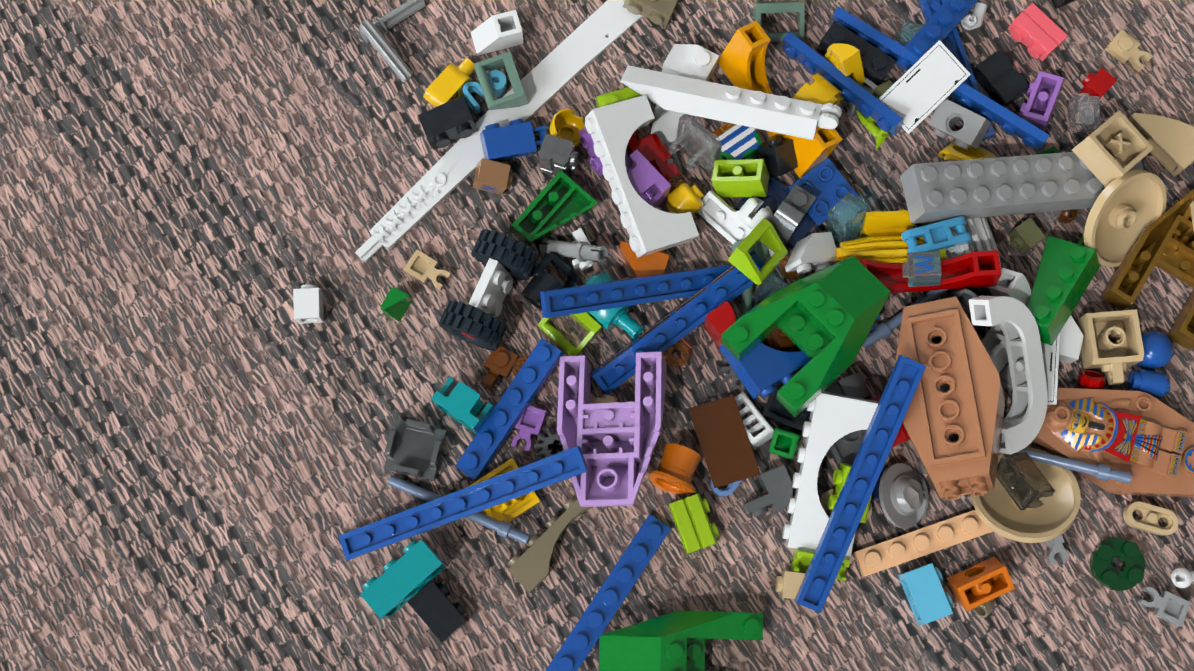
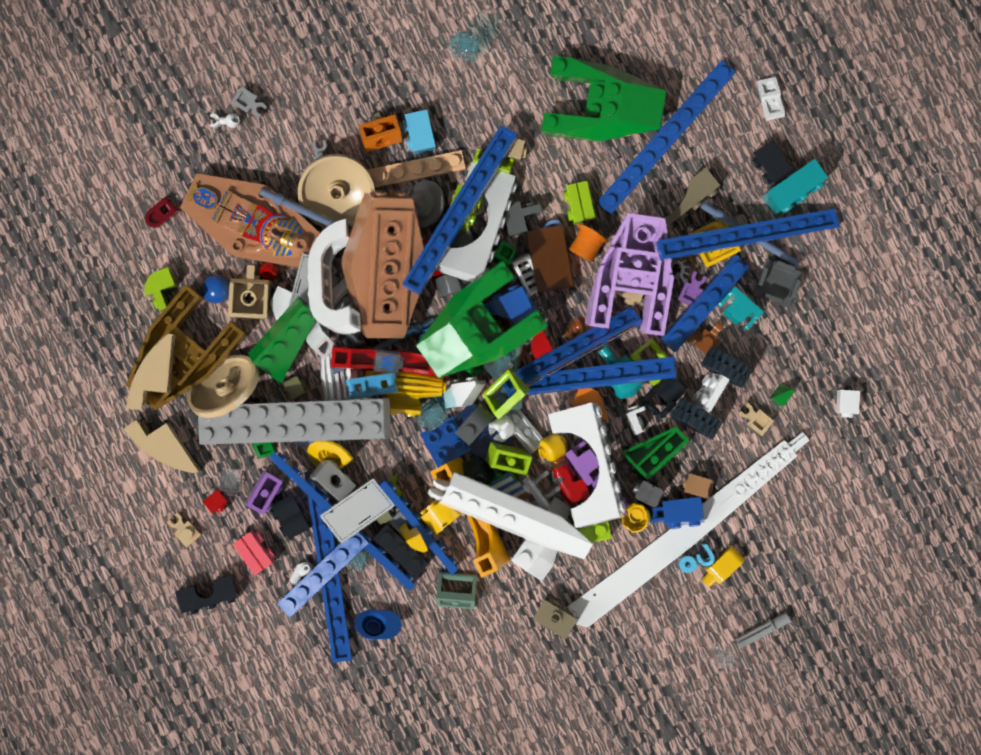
camera: 170 degrees left, 10 degrees up
(385, 50) = (771, 601): light grey axle -> none
(448, 123) = (728, 533): black brick -> none
(498, 33) = (681, 604): white slope -> none
(499, 62) = (673, 561): sand green tile -> none
(581, 251) = (638, 414): light grey pin -> none
(1023, 480) = (338, 200): clear smoke hinge -> none
(1112, 148) = (226, 436): tan brick -> none
(1128, 553) = (268, 144): dark green plate -> none
(1149, 382) = (226, 263): blue brick -> none
(1149, 518) = (246, 165): tan plate -> none

